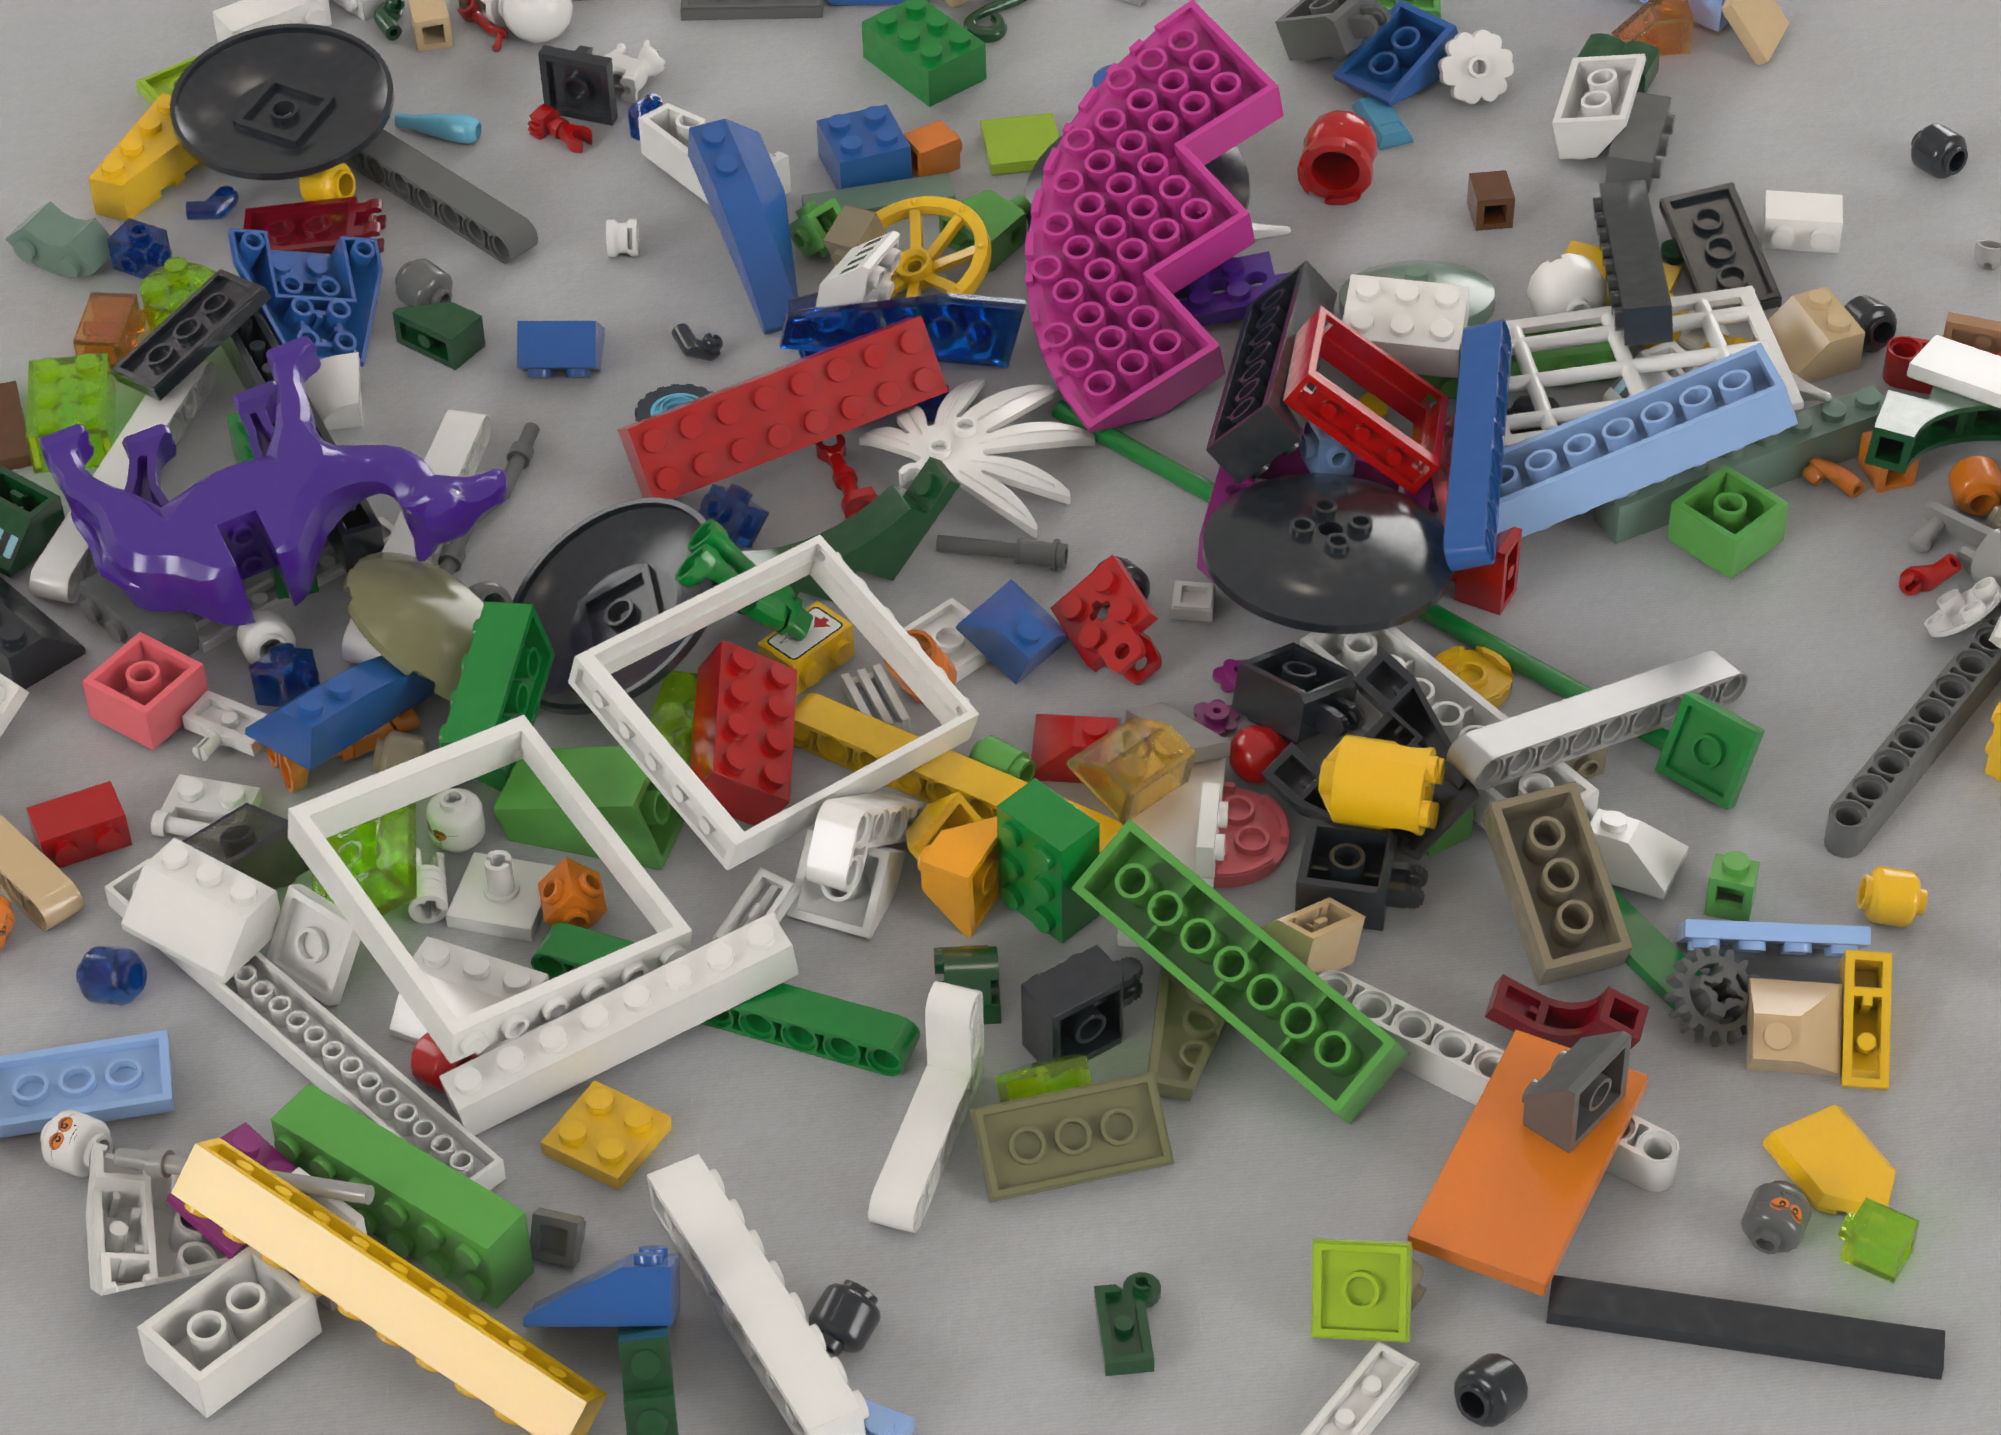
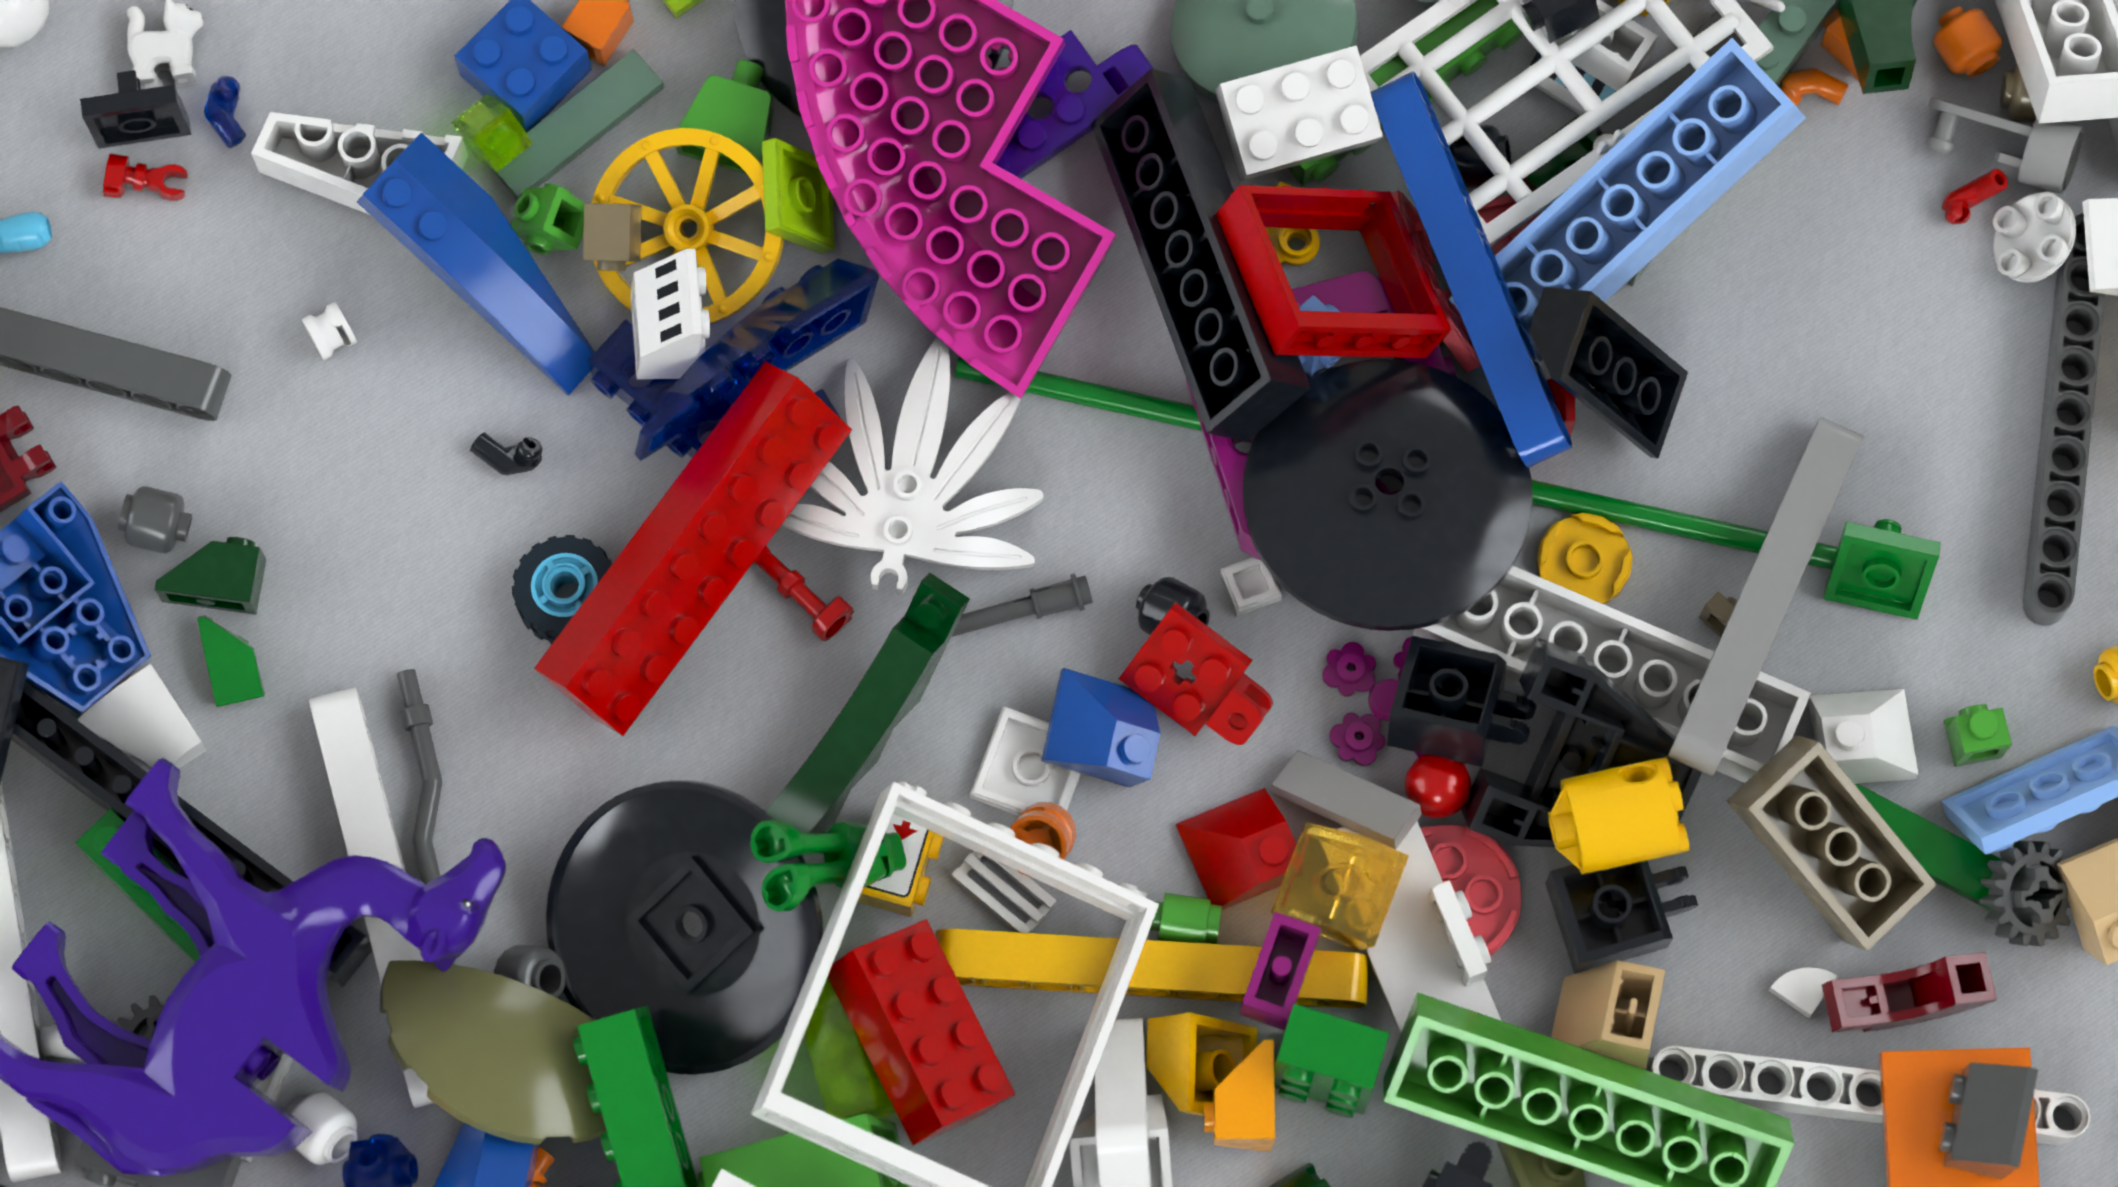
camera: 30 degrees left, 30 degrees up
(412, 382) = (230, 664): none -> green slope
(559, 347) = (365, 537): blue slope -> none
(734, 512) = (710, 710): clear blue brick -> none
(813, 172) = (492, 132): none -> clear neon green brick
(999, 262) = (796, 197): none -> lime tile
(1060, 768) = (1280, 970): none -> magenta brick
(1474, 996) = (1802, 988): none -> white tile
(1555, 531) = (1608, 365): none -> black slope
(1727, 521) = (1750, 228): bright green brick -> none

